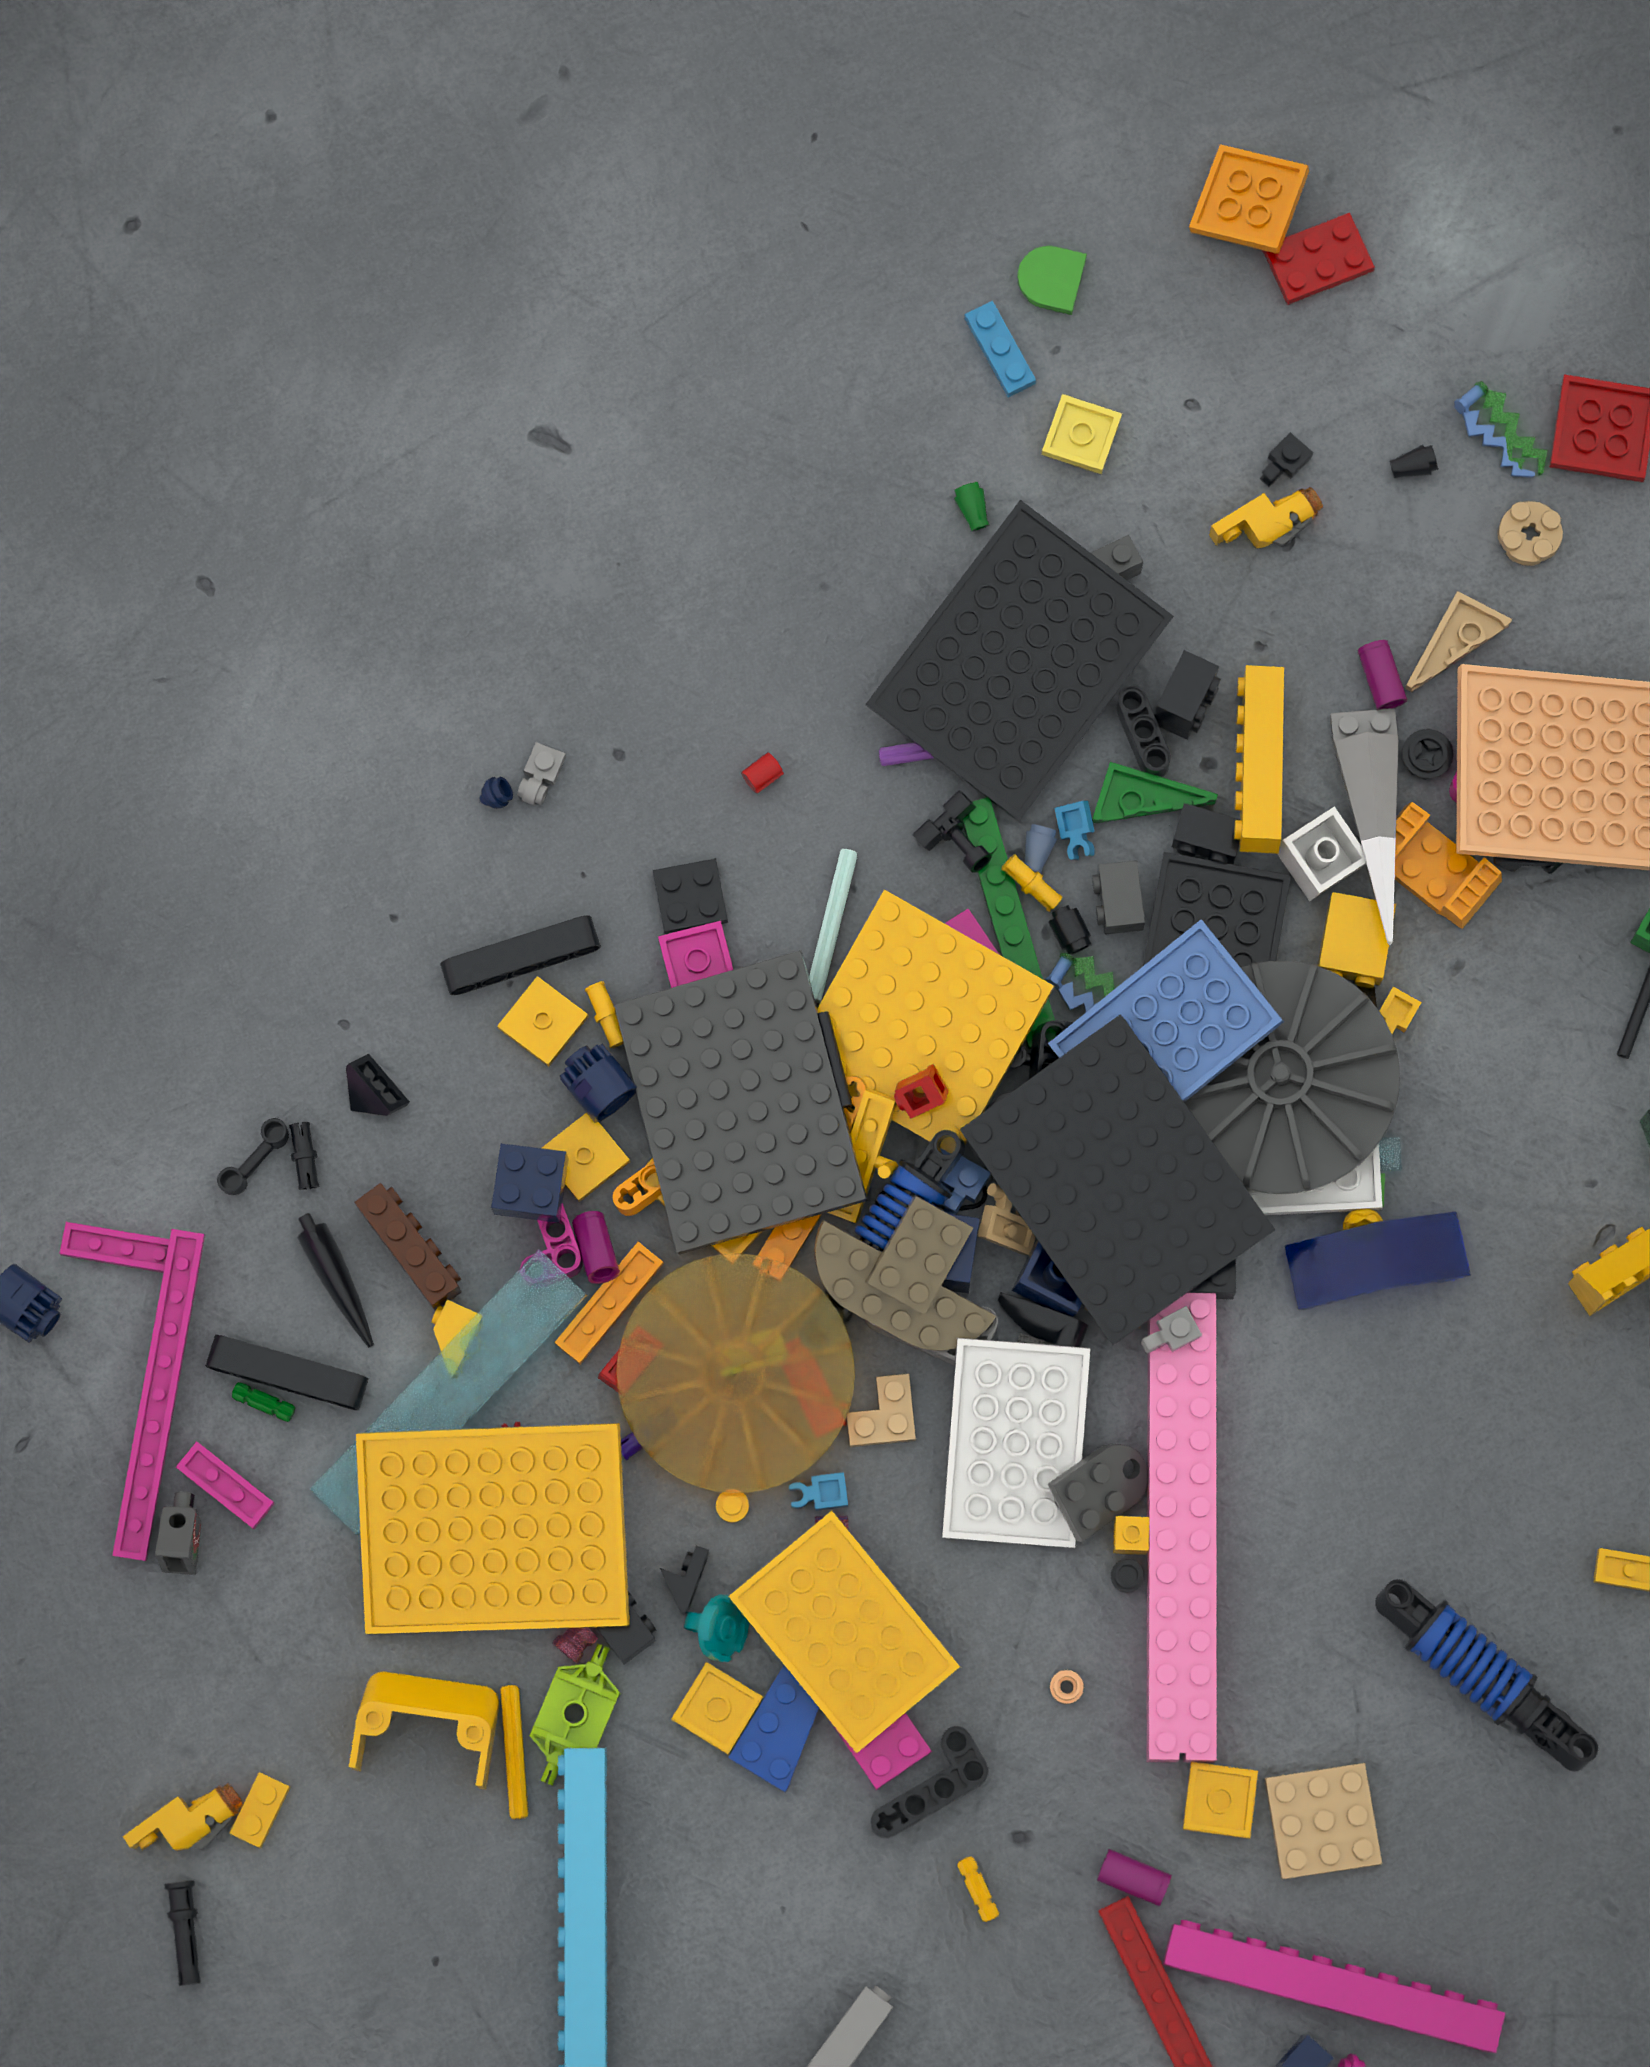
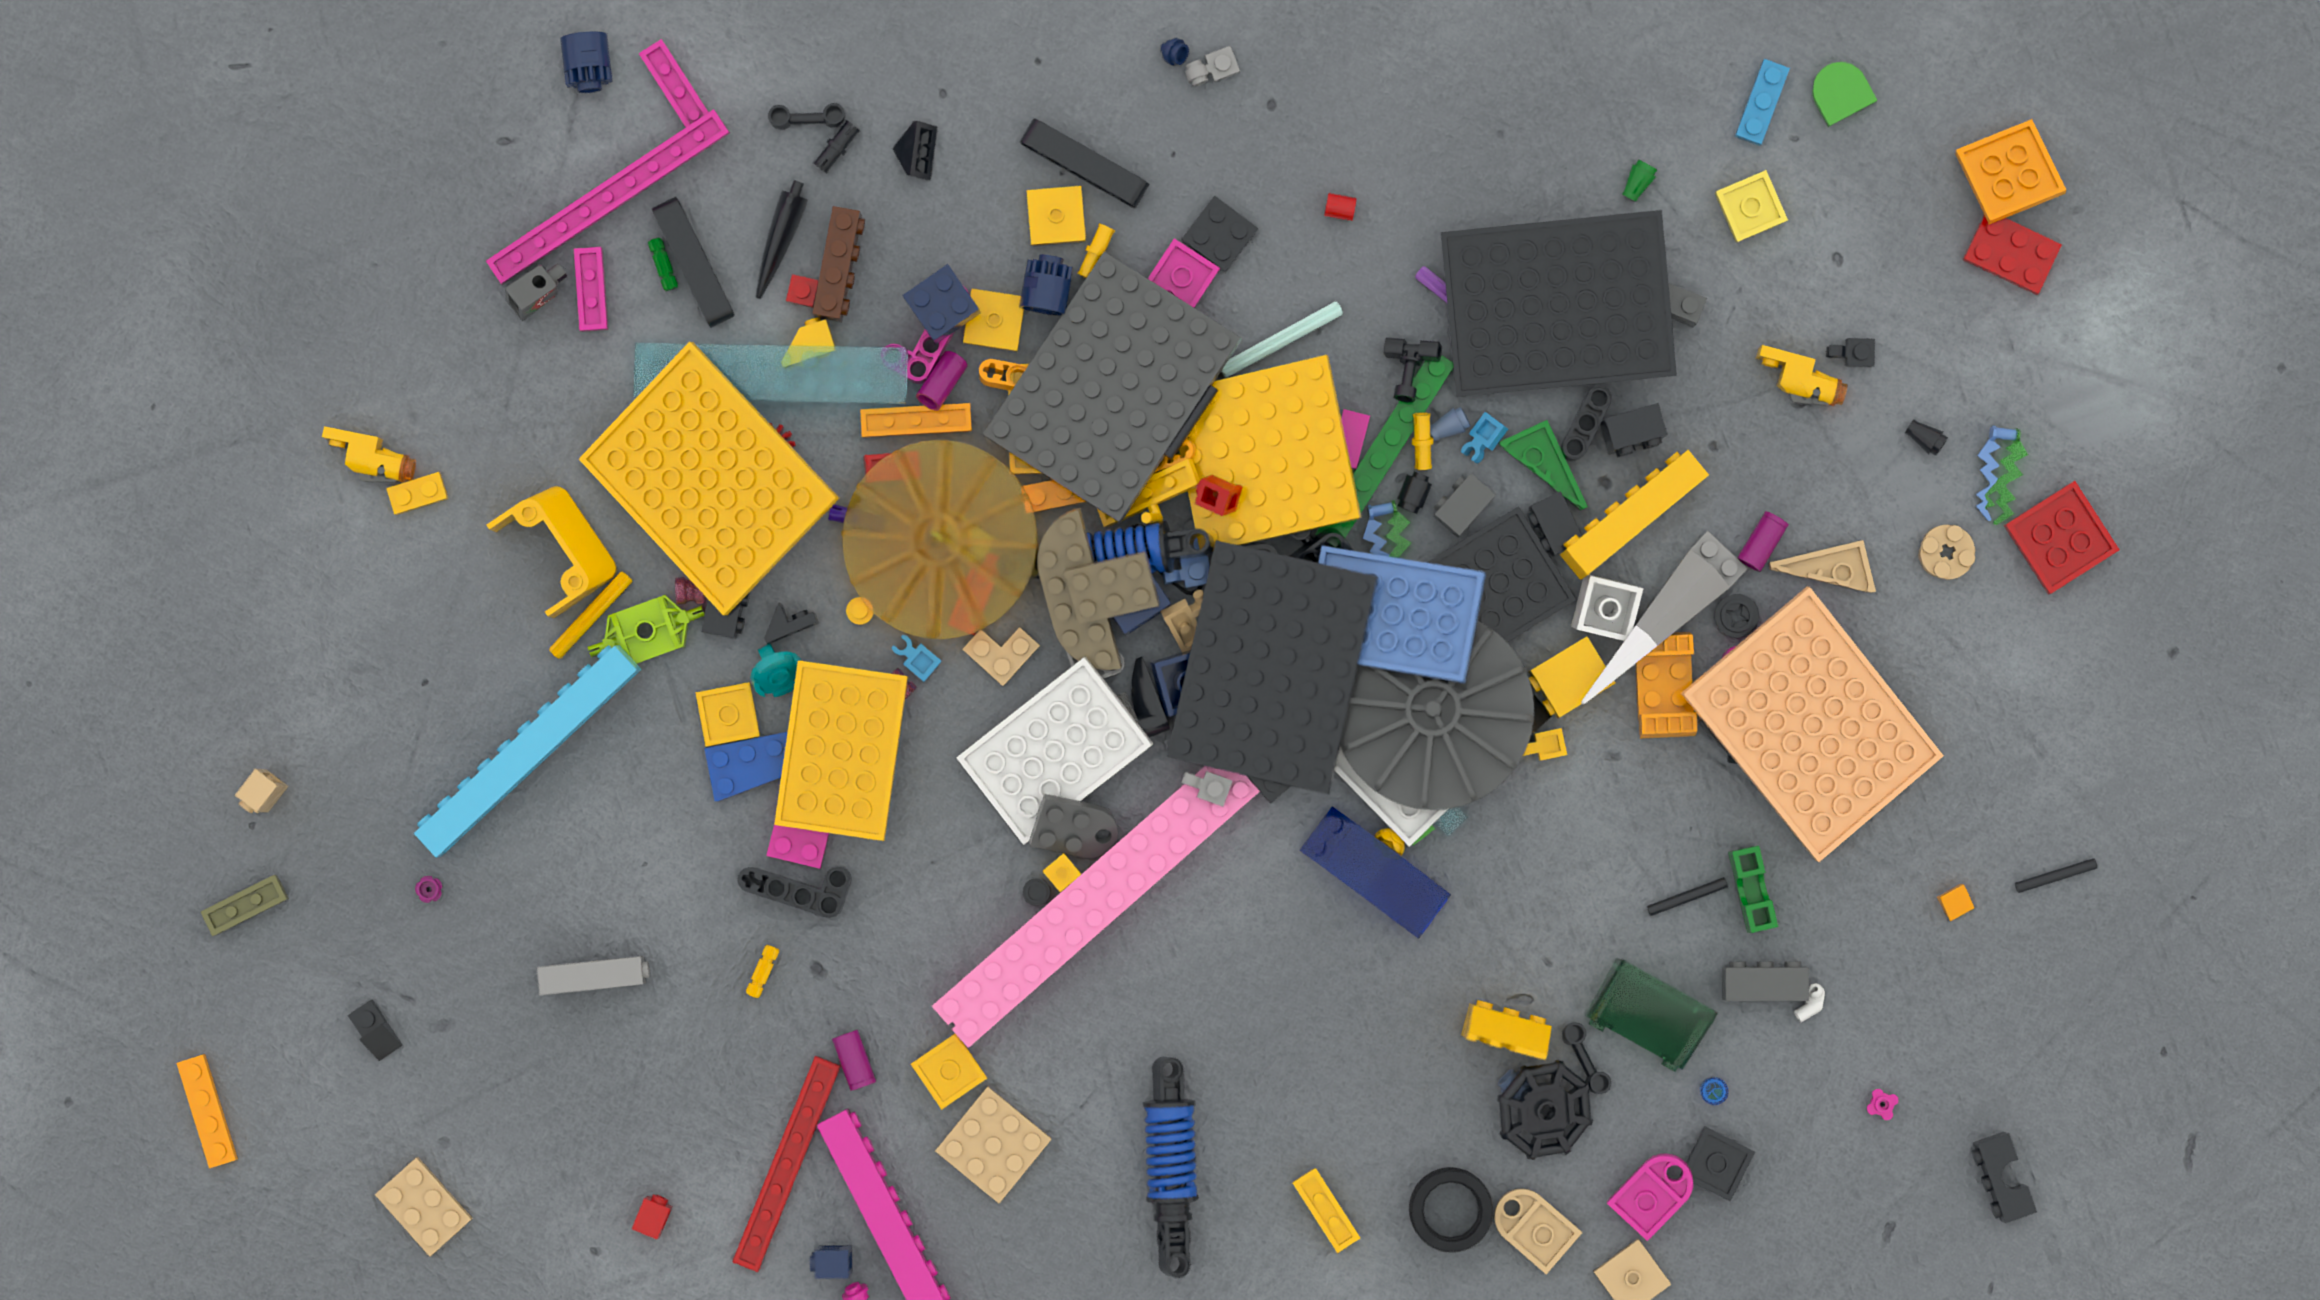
camera: 45 degrees right, 10 degrees up
(183, 1914) = (312, 506): black pin -> none
(402, 1300) = (802, 291): none -> red plate
(1074, 1679) = (927, 922): light nougat plate -> none

